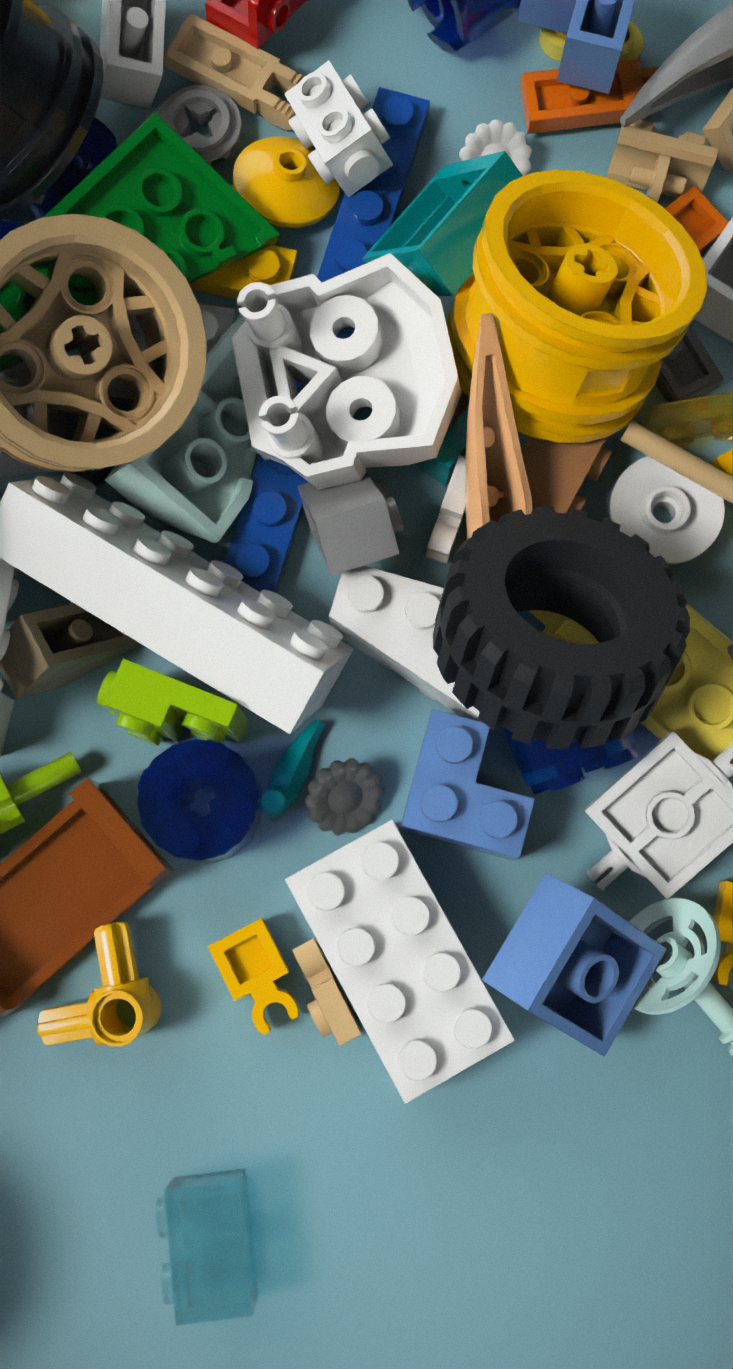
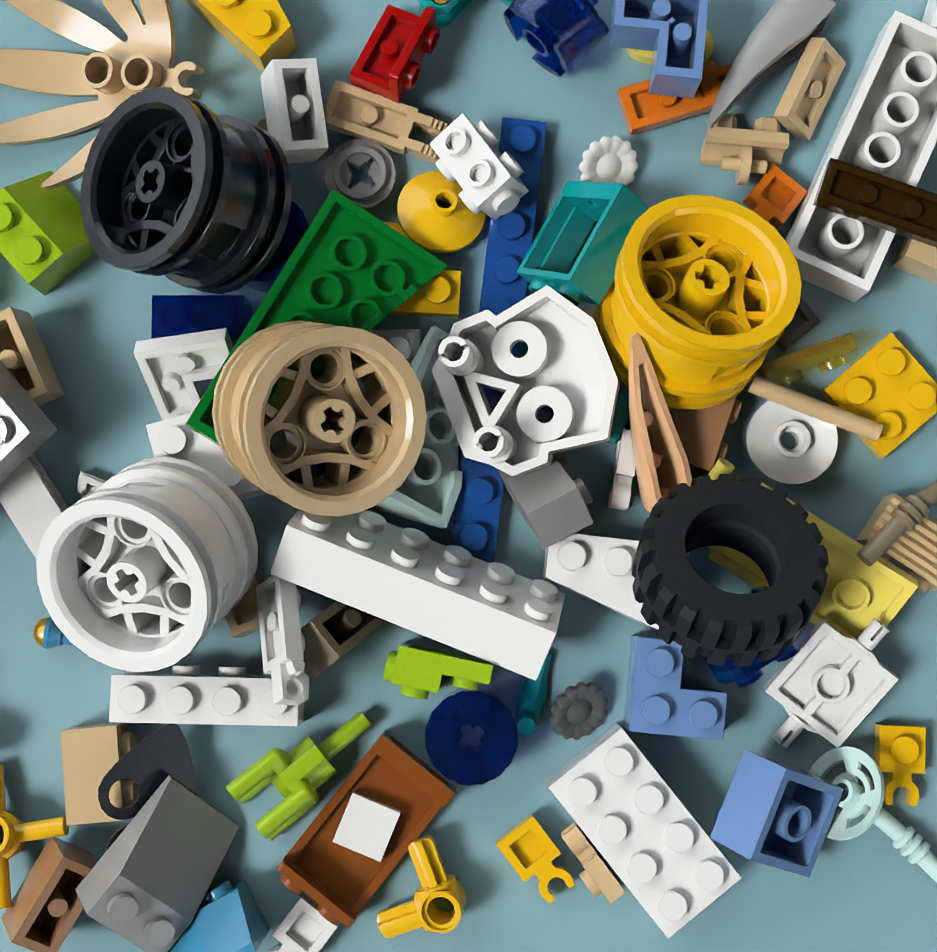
camera: 10 degrees left, 5 degrees up
(49, 896) = (366, 826): none -> white piece

